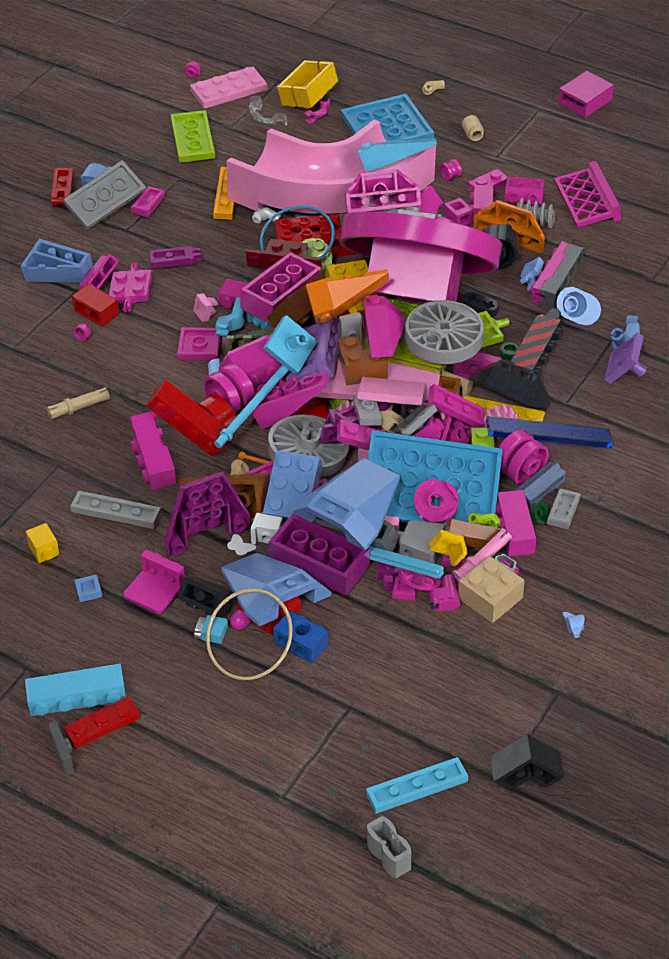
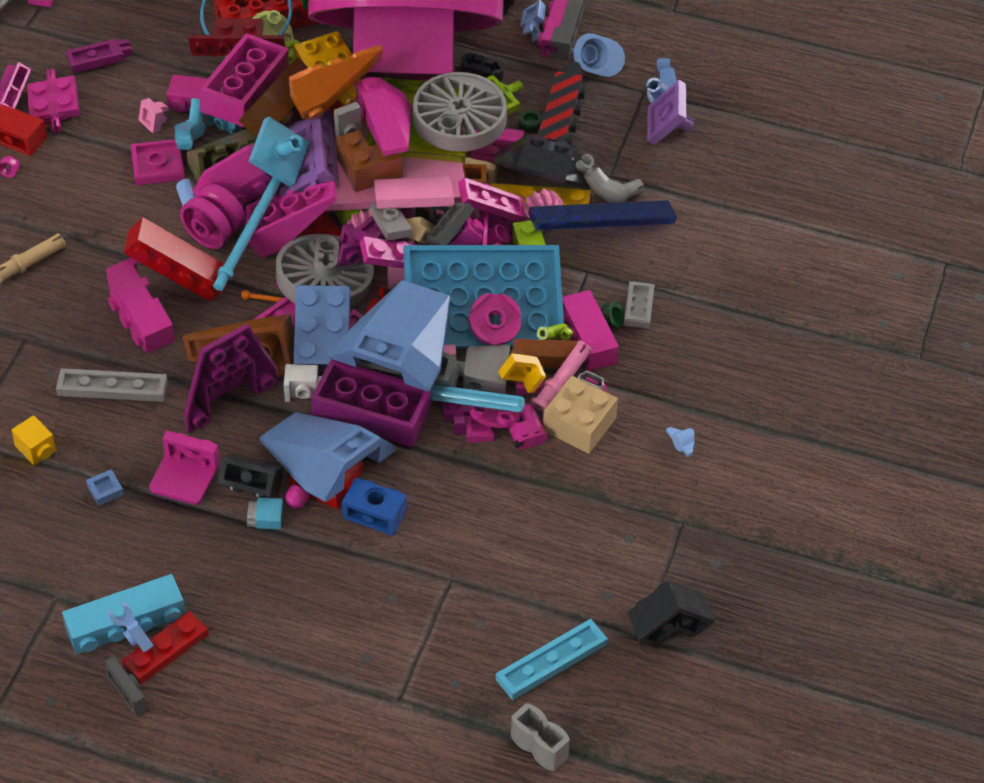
camera: 15 degrees left, 5 degrees up
(78, 705) = (135, 633): none -> light blue plate
(213, 616) = (264, 513): tan piece -> none
(218, 408) = (207, 241): red brick -> none
(239, 467) = (247, 311): tan plate -> none
(240, 548) = (273, 408): white sticker -> none
(522, 456) = (581, 250): dark pink wheel -> none
(542, 483) = (607, 276): sand blue piece -> none
(558, 411) = (607, 189): none -> light grey arm

